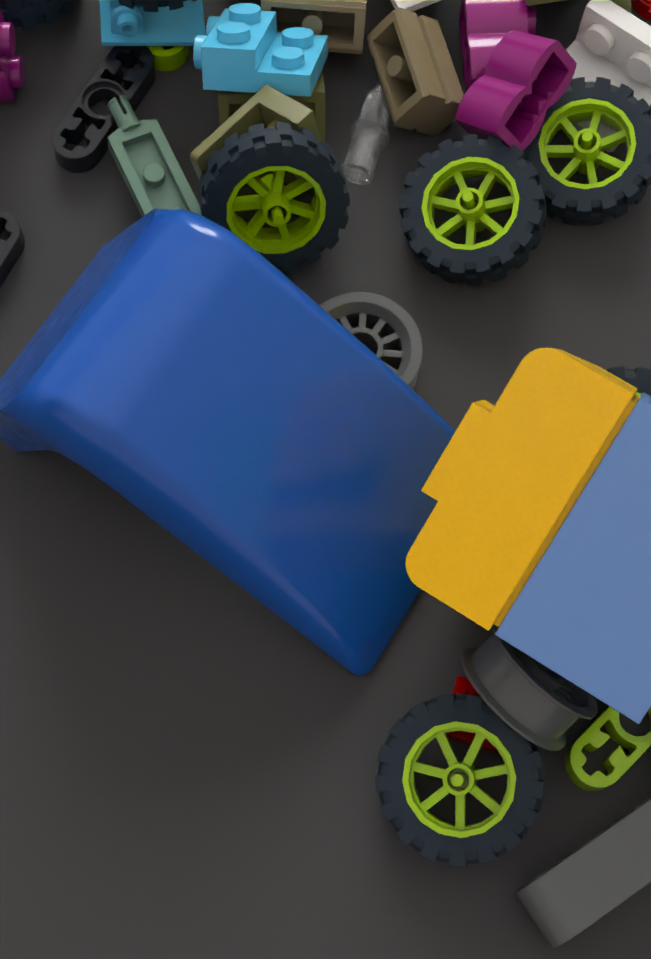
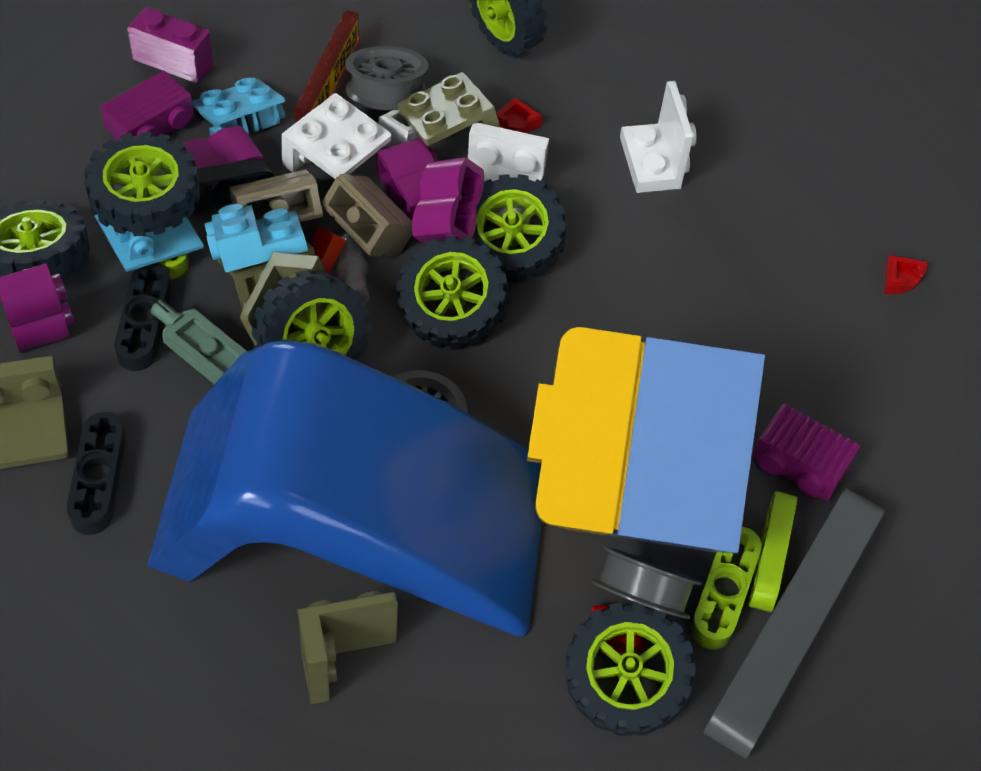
camera: 25 degrees left, 15 degrees down
(119, 578) = (342, 627): none -> olive bracket
(348, 98) = (327, 247): none -> red tile

